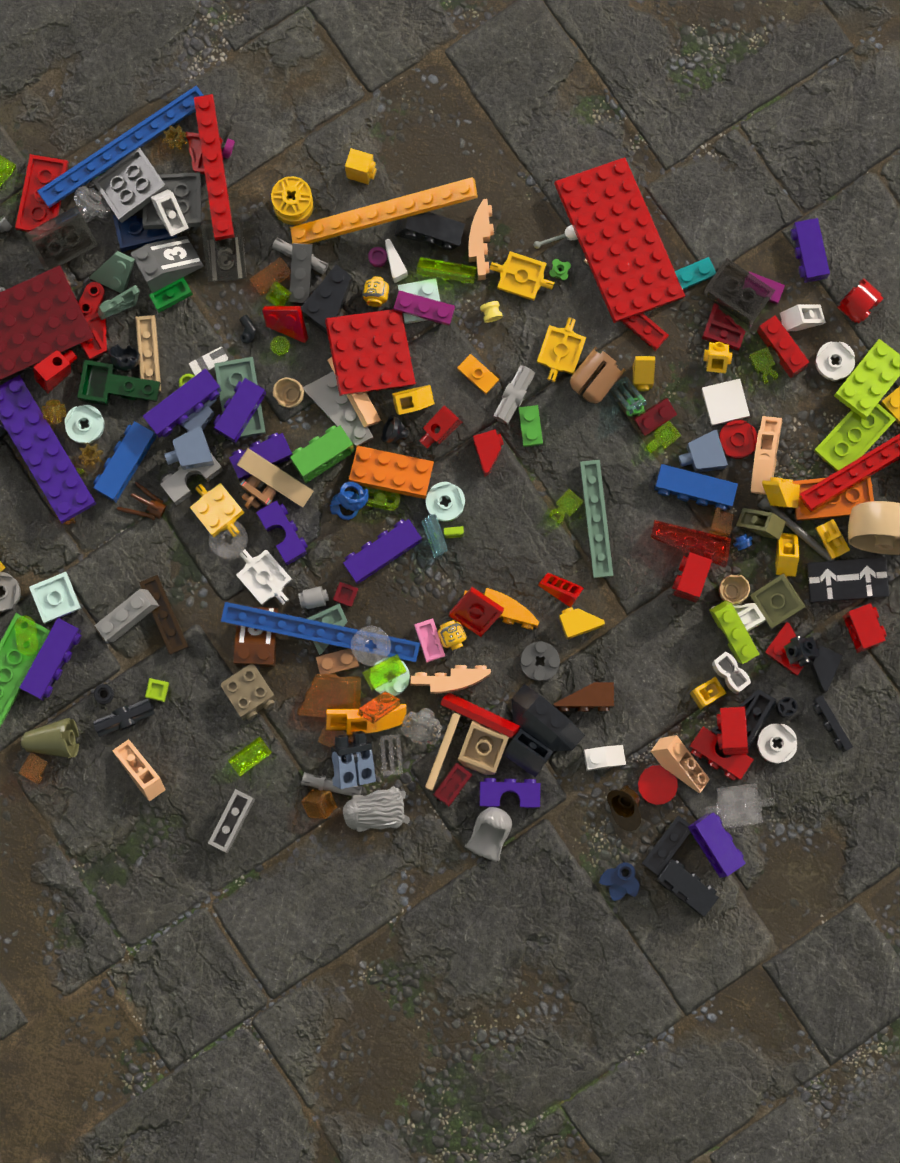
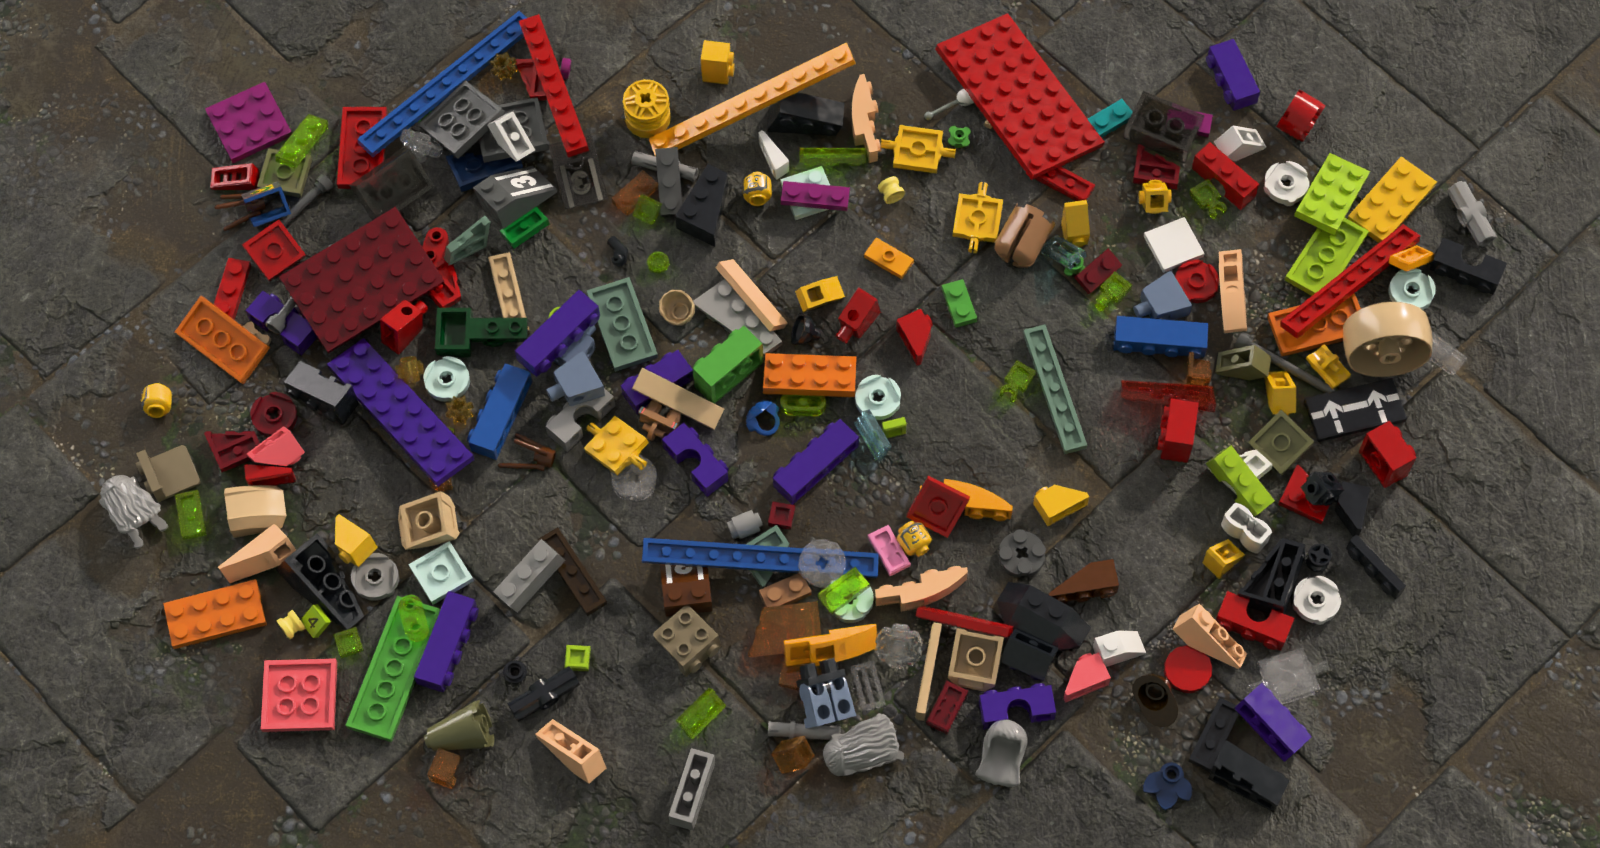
camera: 10 degrees left, 15 degrees down
(50, 552) = (427, 521): none -> tan slope
(115, 272) = (458, 211): sand green wing -> none
(124, 358) = (482, 302): black hair -> none
(208, 360) = (586, 284): clear sticker -> none
(239, 410) = (624, 332): dark purple brick -> none
(264, 577) = (682, 511): white plate -> none
(286, 320) = (661, 234): red wing -> none
(352, 504) = (771, 411): blue piece -> none
(370, 352) = (762, 250): red plate -> none
(377, 257) = (752, 155): magenta tile -> none
(379, 707) = (845, 628): clear orange plate -> none
(514, 394) = (934, 272): light grey piece -> none
(565, 591) = (1032, 470): red slope -> none
(572, 778) = (1087, 677): none -> coral slope
(734, 589) = (1229, 434): tan hair -> none
(734, 730) = (1265, 582): red brick -> none
(743, 542) = (1227, 386): blue plate -> none
(782, 492) = (1259, 324): yellow slope -> none

